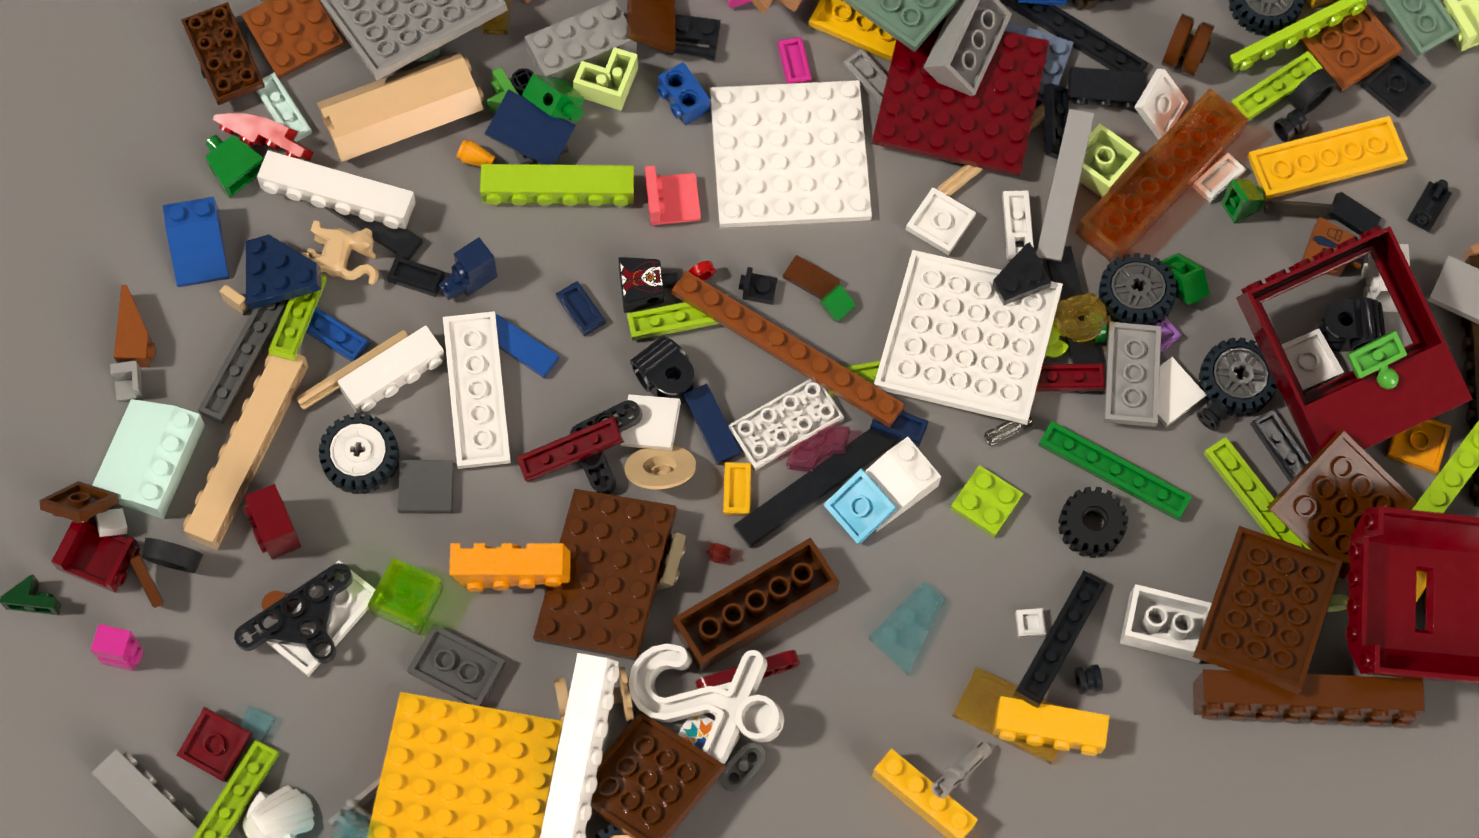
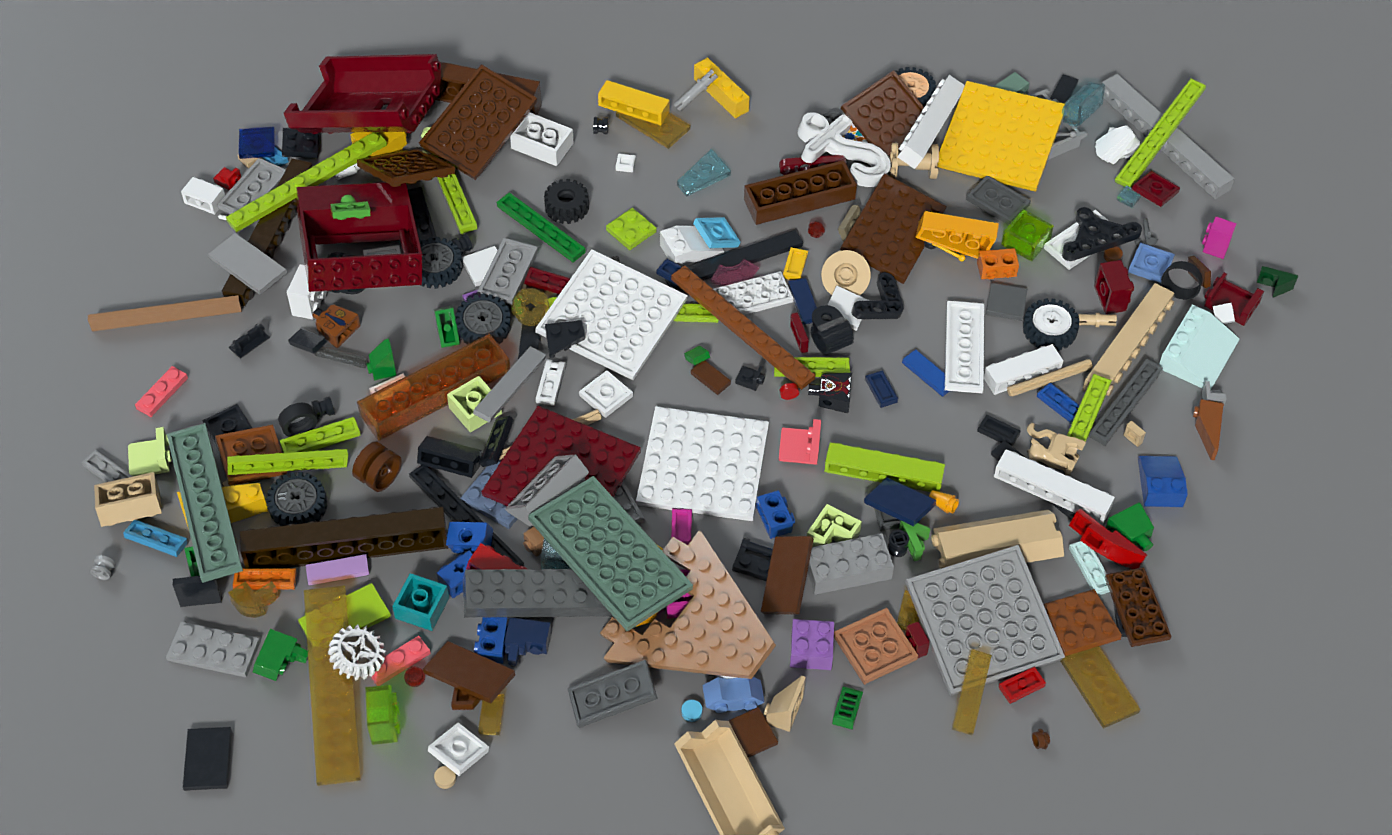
camera: 165 degrees left, 15 degrees down
(79, 502) = (1246, 318): reddish brown plate -> none
(218, 595) = (1150, 262): none -> medium blue plate
(223, 640) = (1149, 239): none -> dark grey piece
(277, 272) = (1102, 438): dark blue plate -> none
(294, 477) = (1097, 319): none -> tan pin
(441, 534) = (998, 263): none -> orange brick
(472, 270) = (958, 415): dark blue hinge -> none
(565, 101) = (876, 513): green torso -> none
(570, 449) = (904, 298): dark red tile -> none
(707, 365) = (799, 332): none -> dark red tile
(1060, 639) = (611, 141): black tile -> none
(1161, 103) = (413, 434): white plate -> none
(1327, 157) = (306, 383): yellow plate -> none

